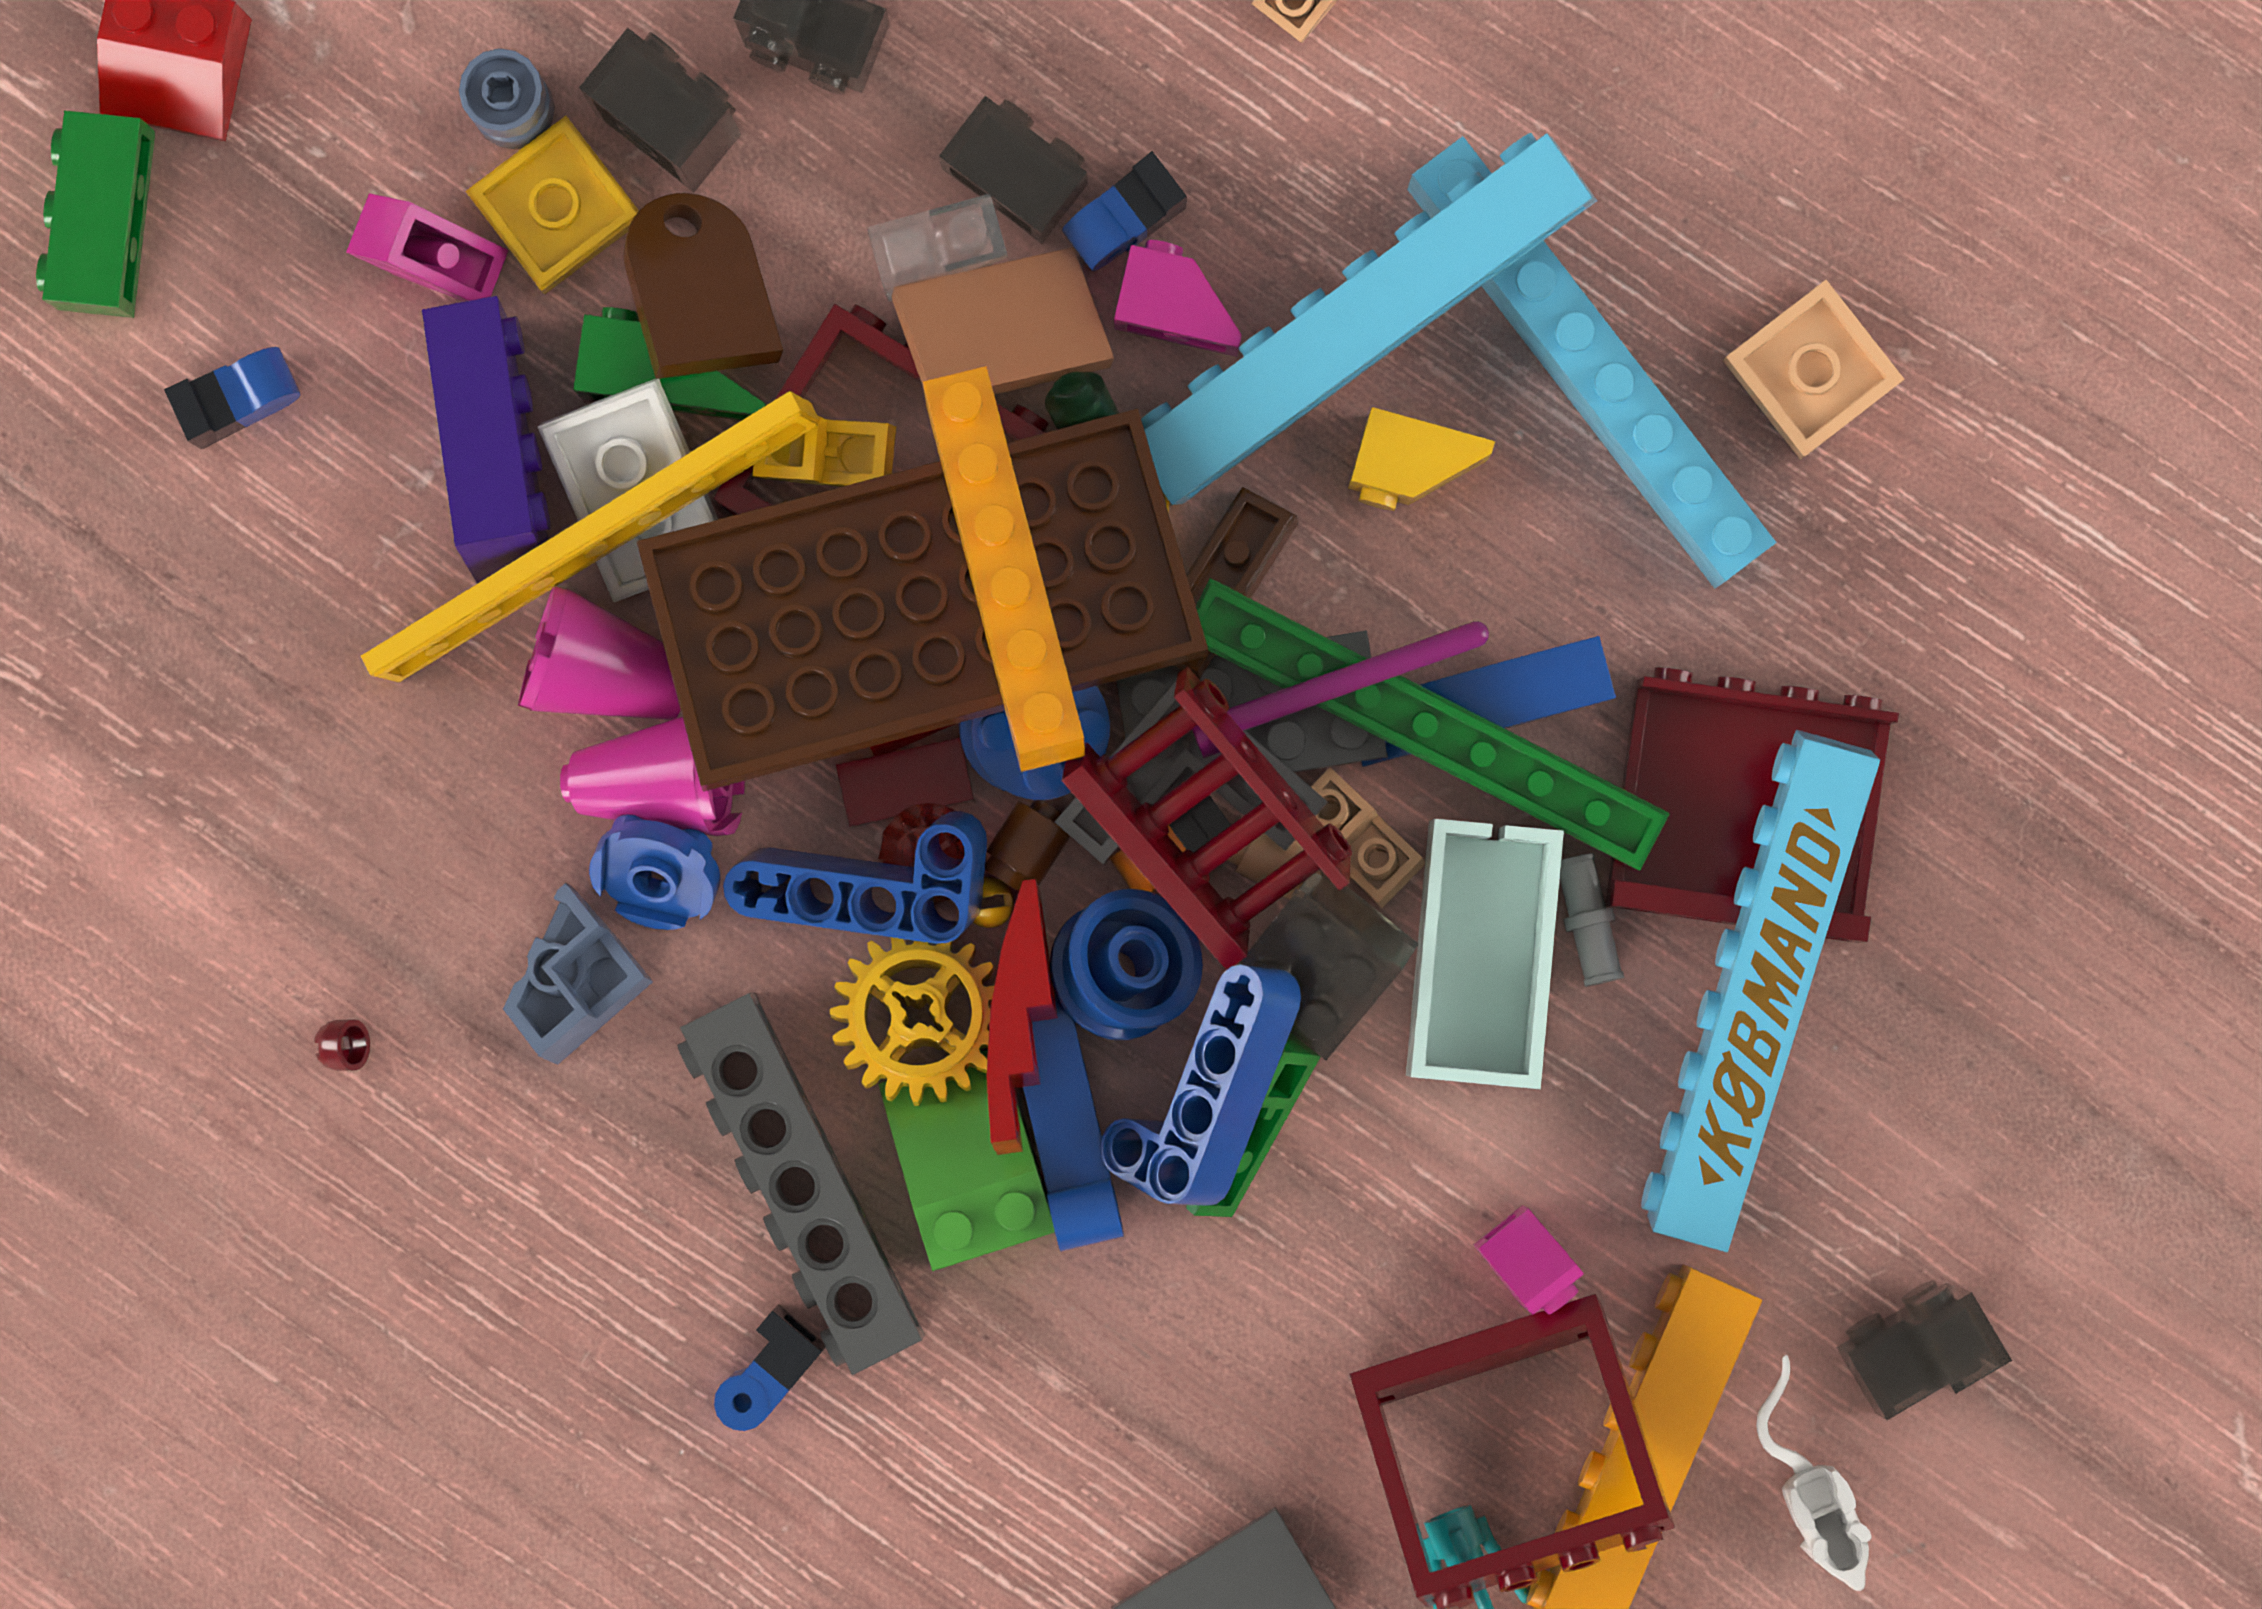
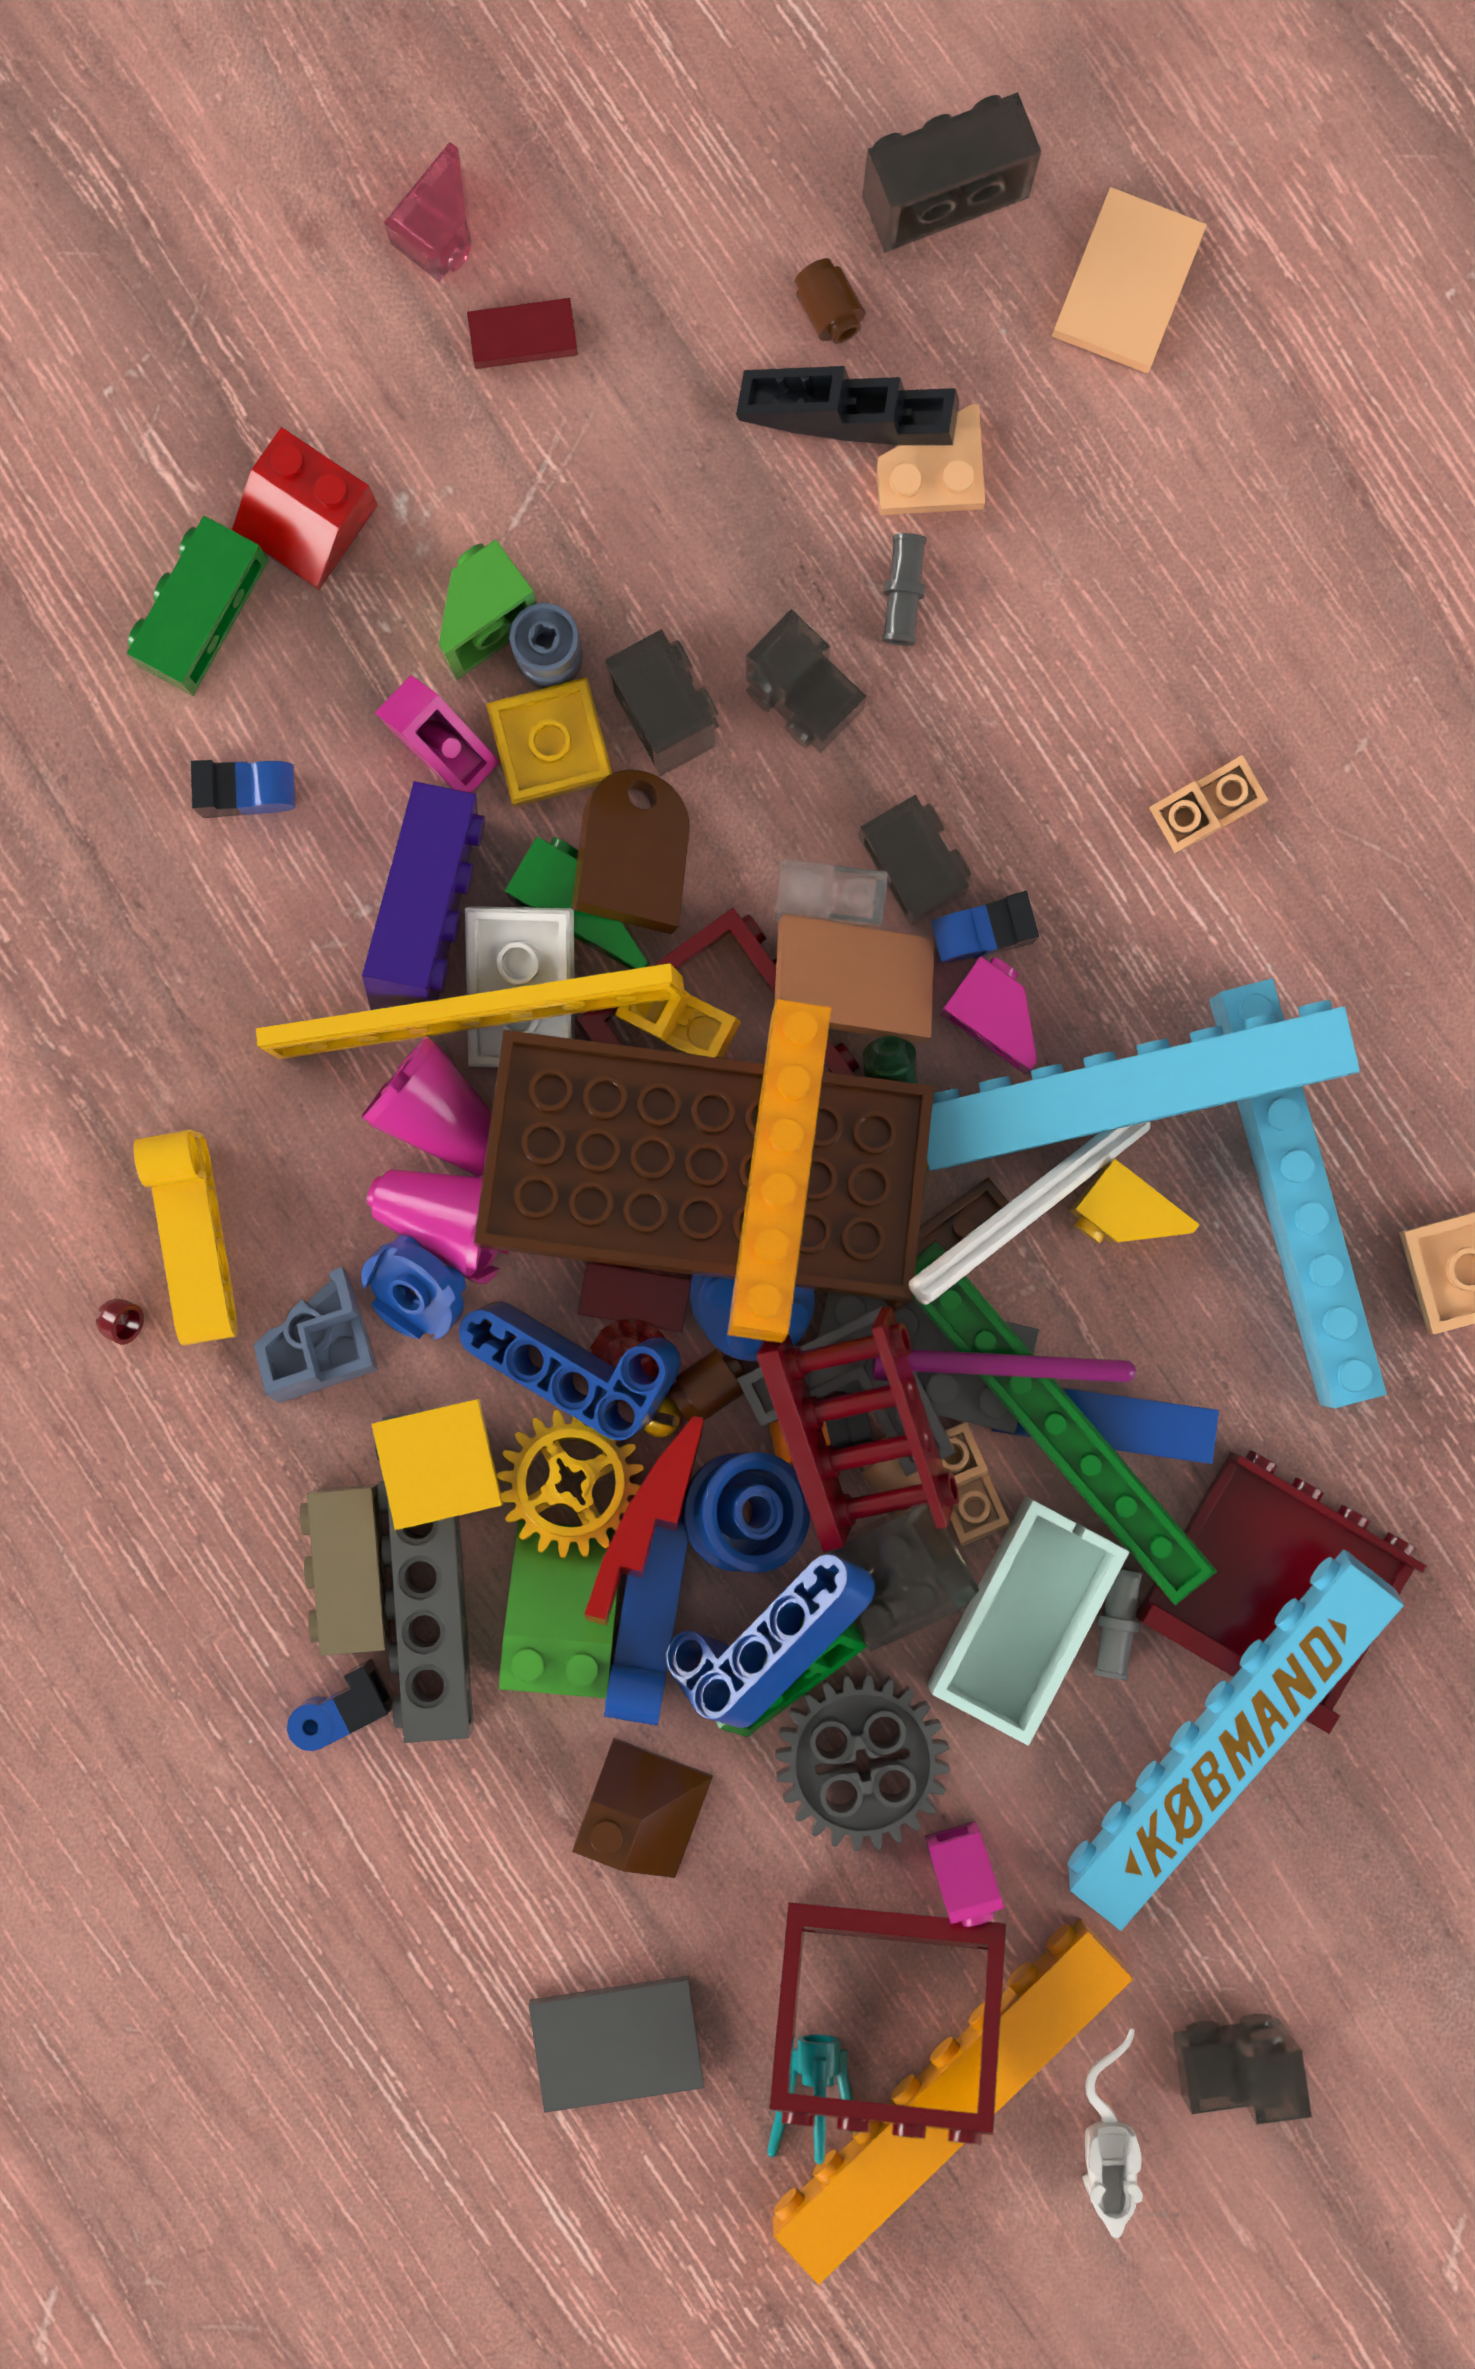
camera: 20 degrees right, 0 degrees up
(381, 914) = (190, 1234): none -> yellow beam
(417, 84) = (481, 606): none -> bright green slope
(709, 1214) = (346, 1570): none -> dark tan brick
(761, 1051) = (437, 1464): none -> yellow tile
(1148, 1345) = (641, 1811): none -> reddish brown slope
(1293, 504) = (1022, 1211): none -> white axle
(1399, 1237) = (870, 1809): none -> dark grey gear

